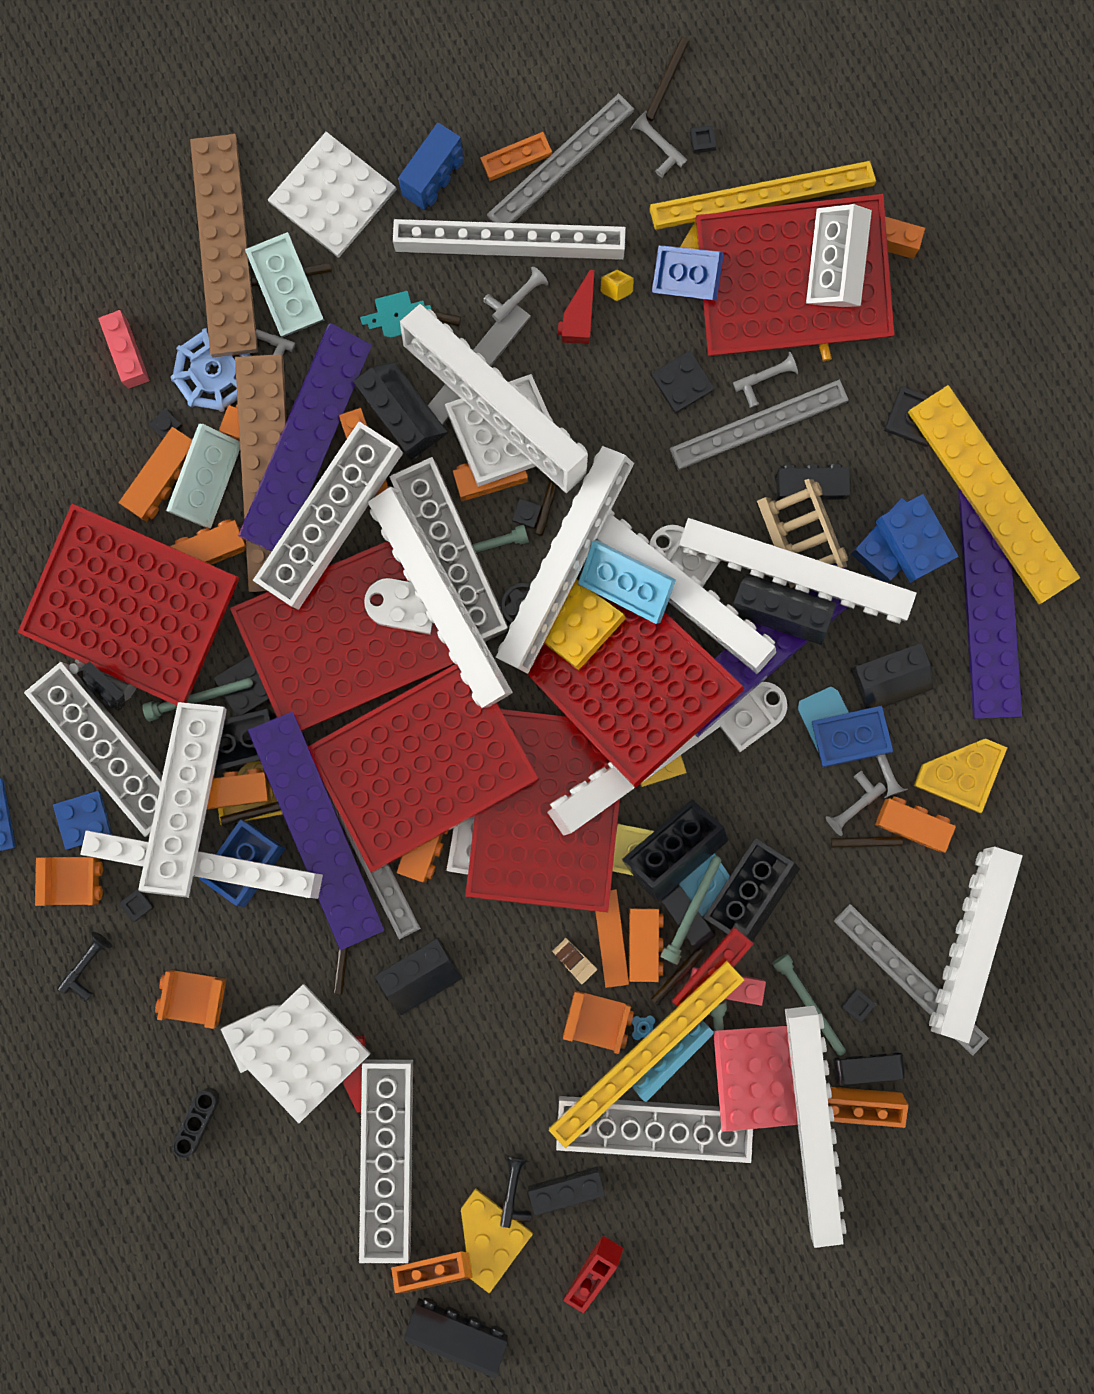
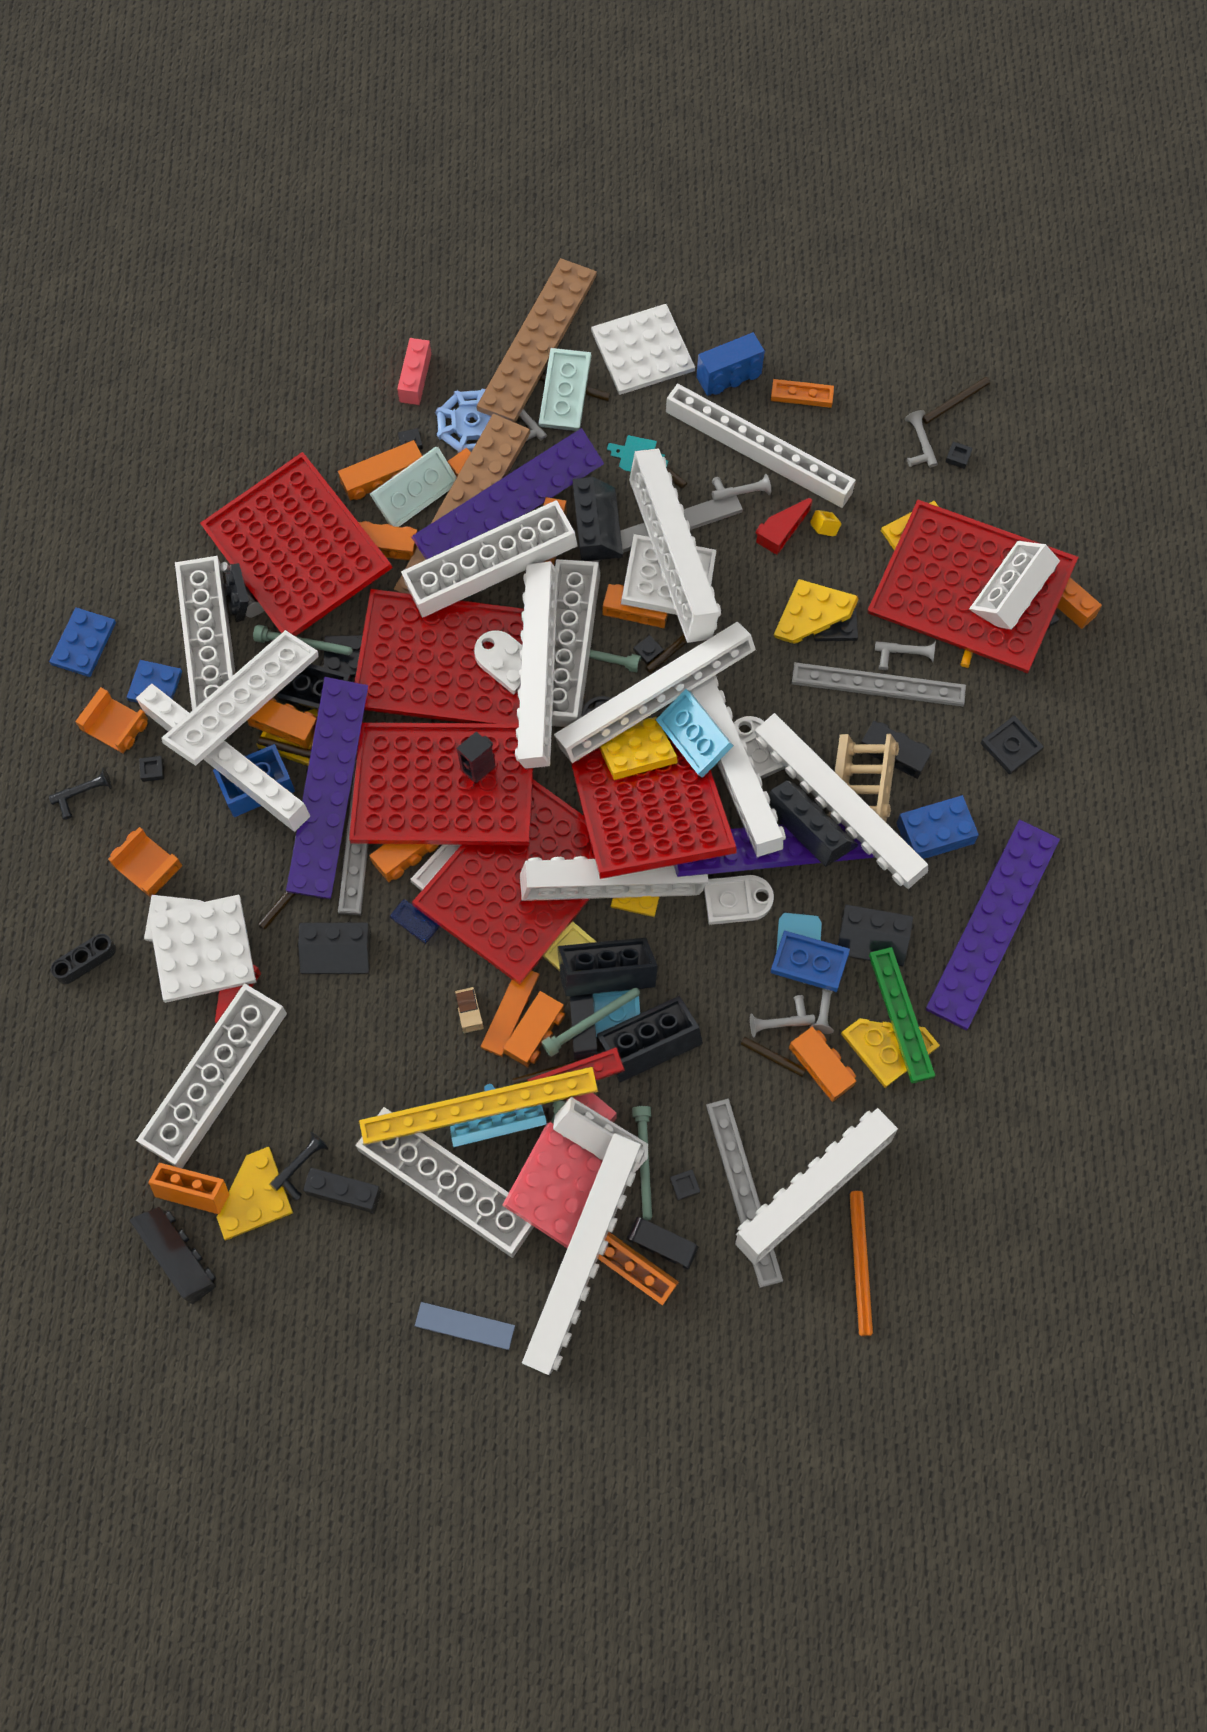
camera: 30 degrees right, 15 degrees down
(442, 727) = (476, 757): none -> brick
(473, 908) = (414, 921): none -> clear blue plate
(561, 161) = (839, 414): light grey tile -> none
(594, 1274) = (320, 1275): red slope -> none
(598, 1021) = (455, 1068): orange panel -> none
(659, 386) = (813, 610): none -> yellow plate
(687, 272) = (886, 538): plate -> none
(742, 1240) = (465, 1326): none -> sand blue tile
(760, 1013) = (590, 1129): none -> white brick
(764, 194) = (909, 492): yellow plate -> none
(916, 538) = (954, 827): blue brick -> none
(961, 741) = (902, 1015): none -> green plate
(993, 494) = (1044, 839): yellow plate -> none
(1045, 982) = (861, 1263): none -> orange axle

